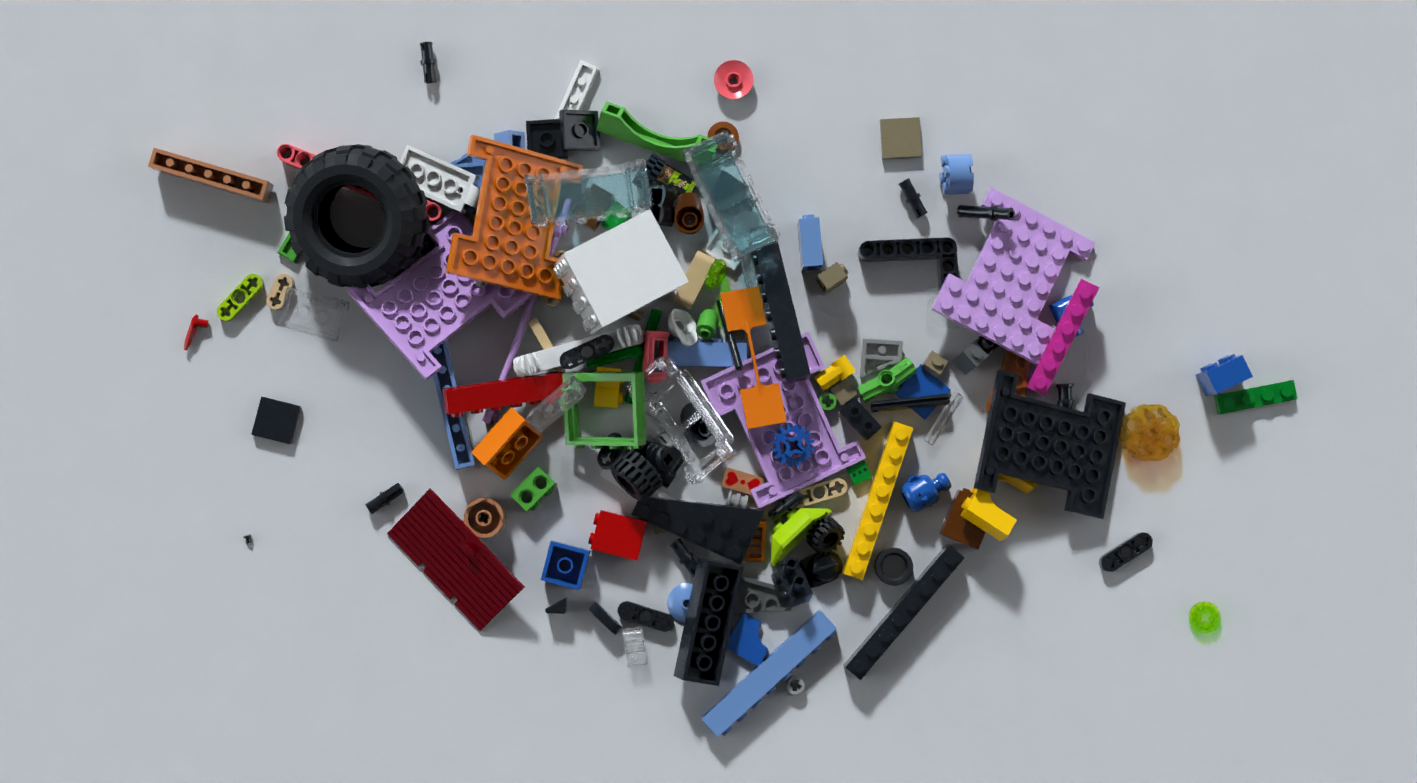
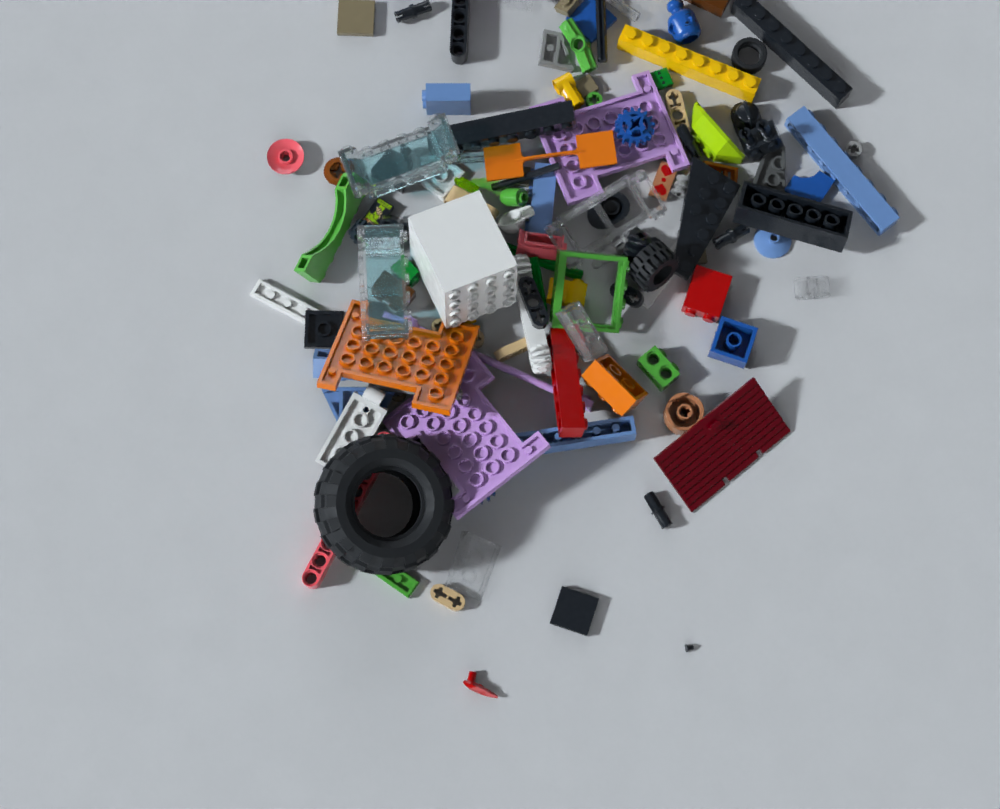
camera: 85 degrees left, 10 degrees down
(210, 175) = (325, 655): nougat brick -> none
(233, 311) = (443, 623): lime beam -> none
(428, 62) = (235, 436): black pin -> none
(558, 608) = (771, 353): black slope -> none
(579, 130) = (318, 298): black tile -> none
(605, 618) = (784, 312): black beam -> none
(642, 608) = (783, 263): black beam -> none
(689, 208) = (404, 202): reddish brown cap -> none
(825, 535) = (719, 108): black tyre -> none
(832, 277) = (481, 83): dark tan brick -> none
(860, 419) = (613, 71): black brick -> none

